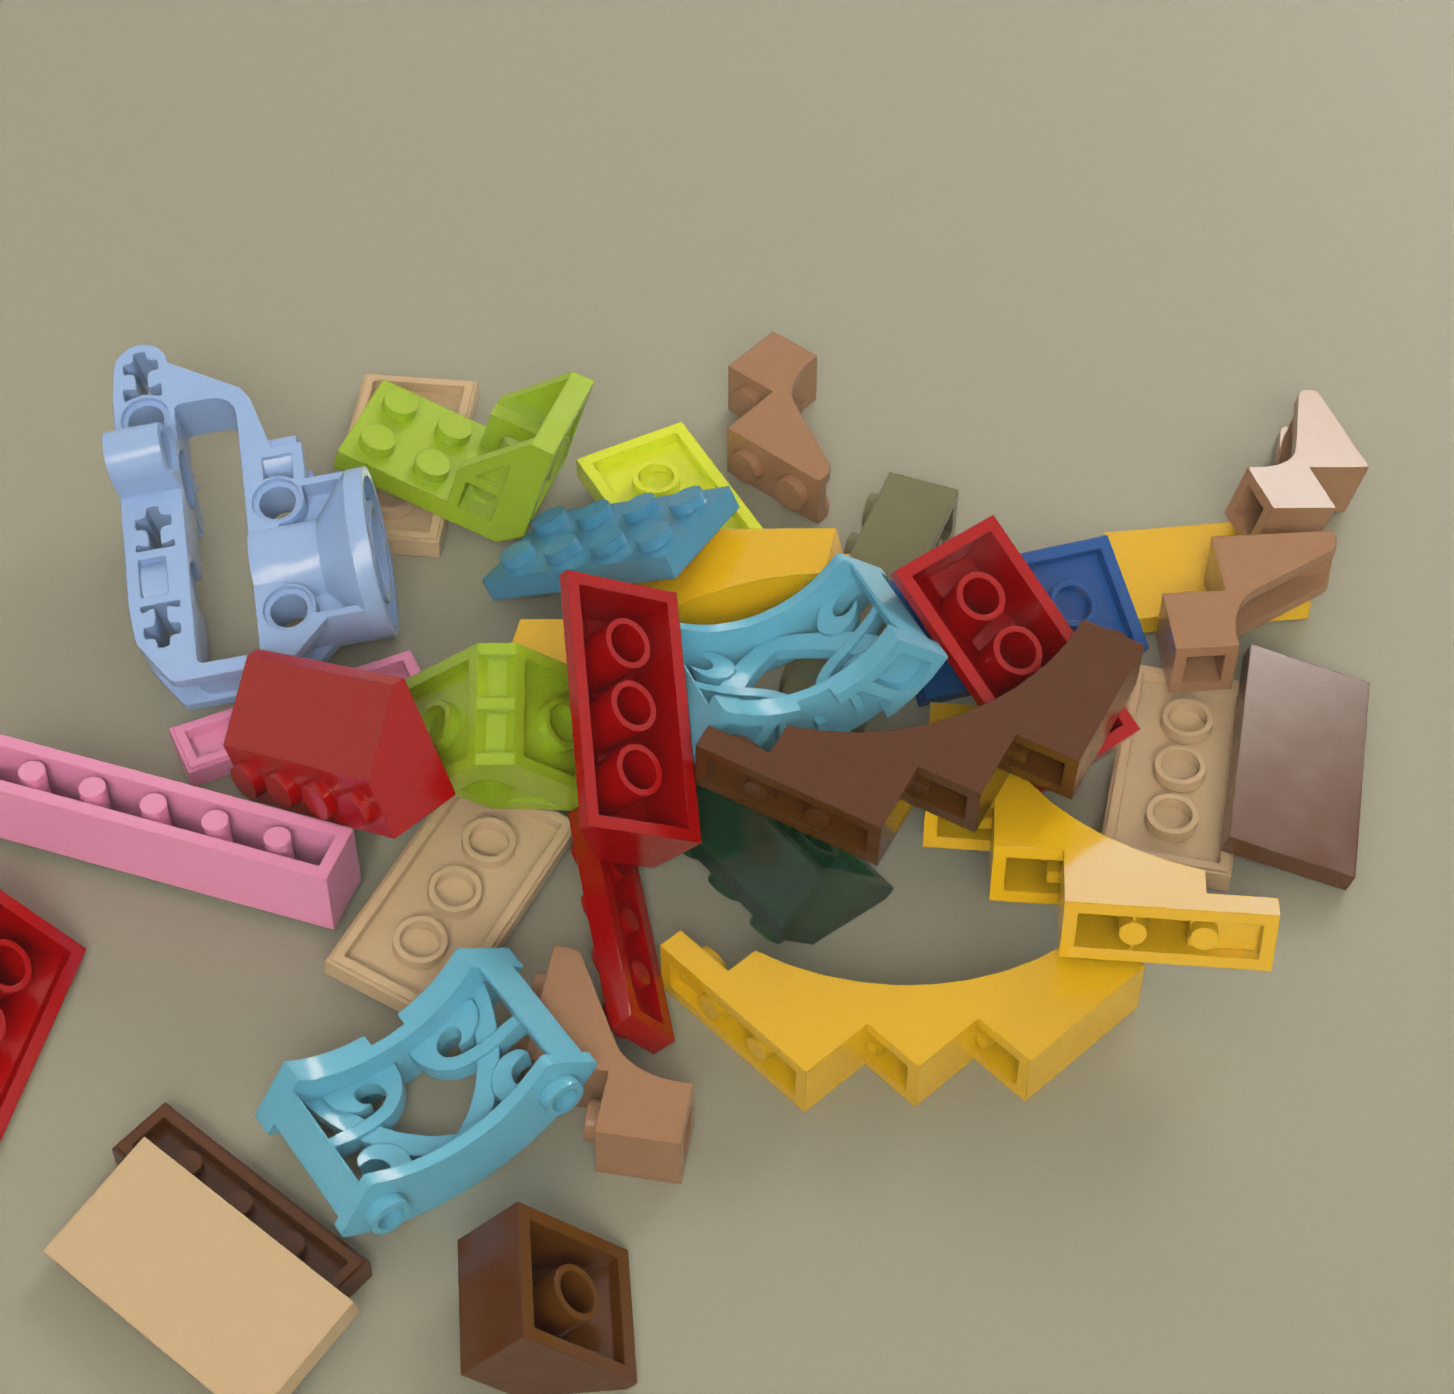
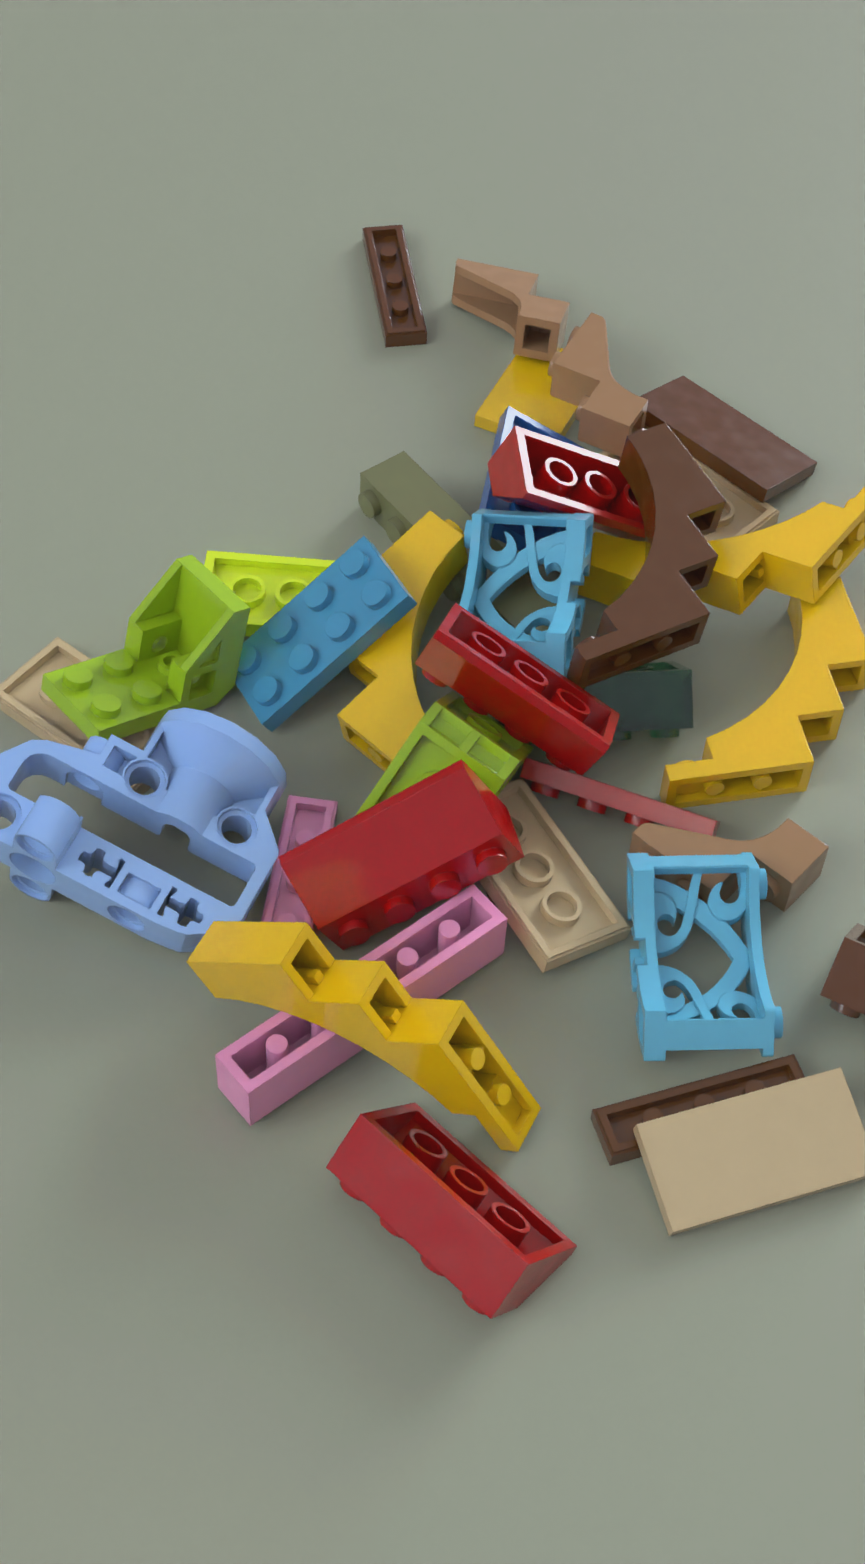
camera: 60 degrees left, 5 degrees up
(97, 859) = (364, 1002): none -> yellow arch
(771, 440) = (269, 516): medium nougat arch -> none
(1247, 377) = (394, 286): none -> reddish brown tile

